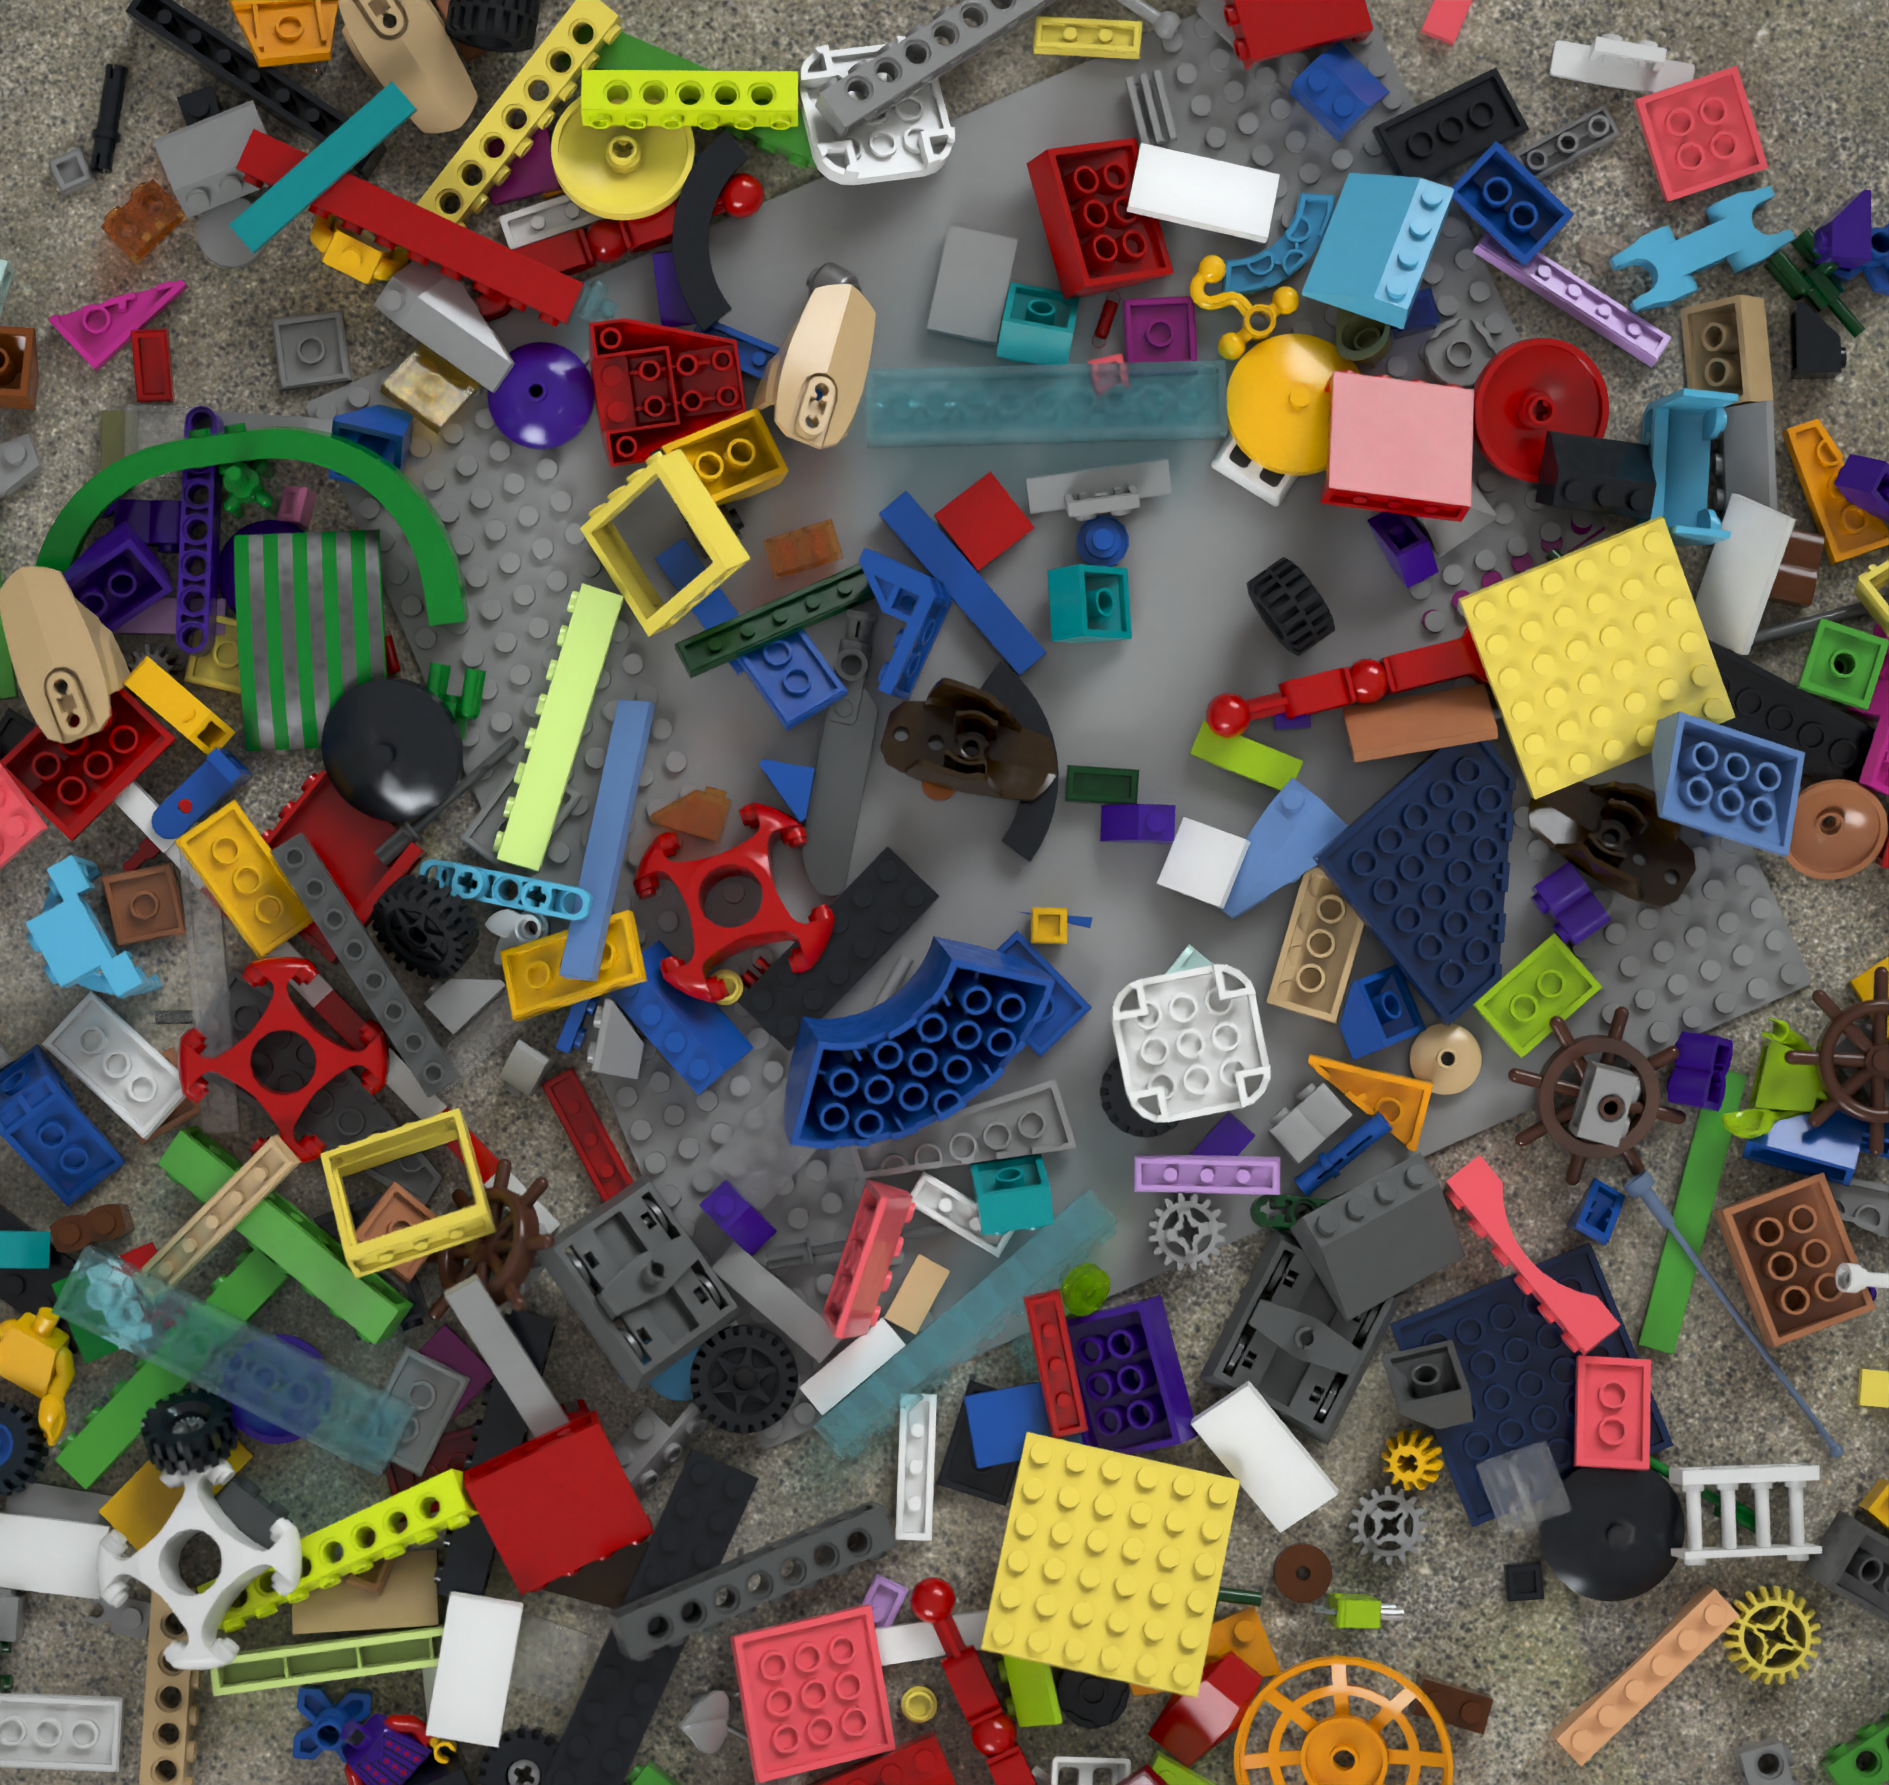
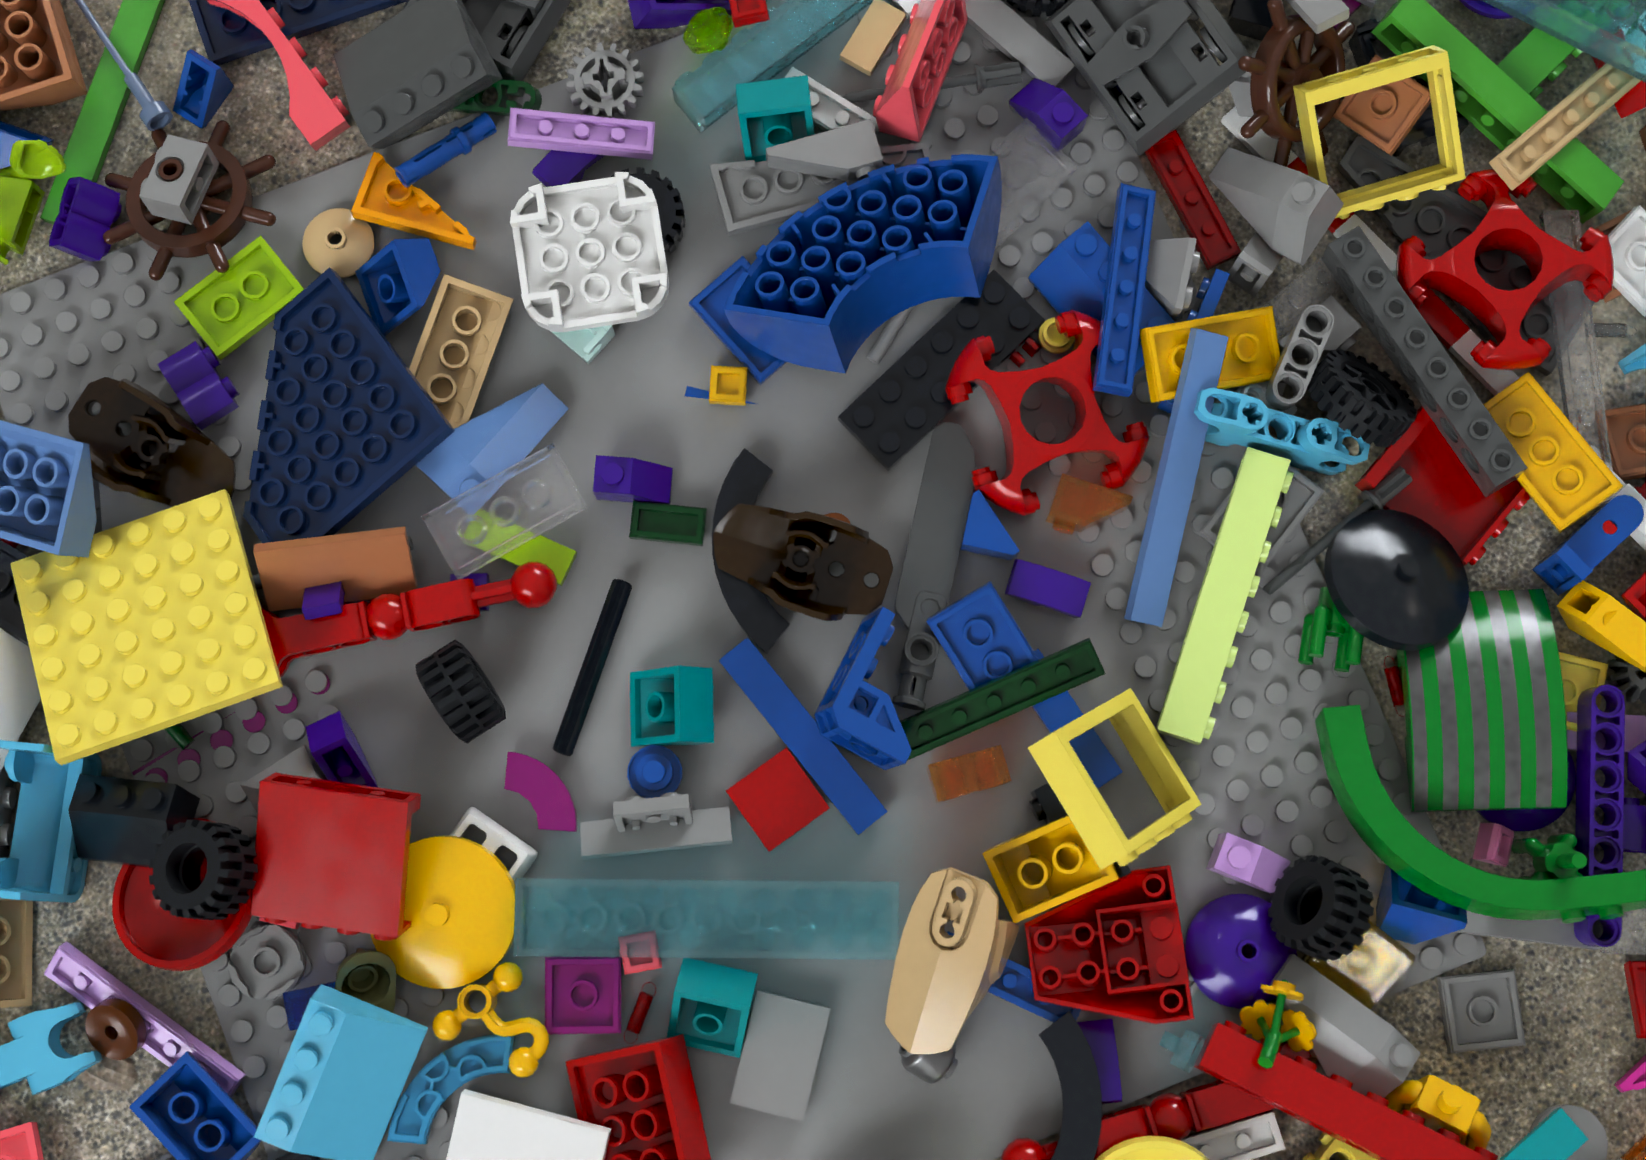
camera: 175 degrees left, 5 degrees down
(469, 430) = (1320, 908): none -> black tyre
(484, 946) = (1308, 342): none -> light grey beam
(507, 1121) = (1278, 202): none -> light grey wedge
(520, 329) = (1265, 1020): none -> yellow plant
(534, 475) = (1247, 862): none -> lavender slope
(661, 1020) = (1124, 290): none -> blue tile
(729, 733) = (1047, 588): none -> dark purple slope
(947, 1157) = (835, 154): none -> light grey slope
(1168, 642) = (592, 667): none -> black axle
(1203, 862) = (575, 432): white tile -> none
(1208, 522) = (544, 791): none -> magenta tile
(1259, 782) = (504, 512): none -> clear tile
(1308, 1122) = (478, 182): light grey brick -> none
(1429, 690) = (323, 600): none -> dark purple tile
(1542, 419) = (179, 866): none -> black tyre
(1596, 287) = (115, 1029): none -> reddish brown piece

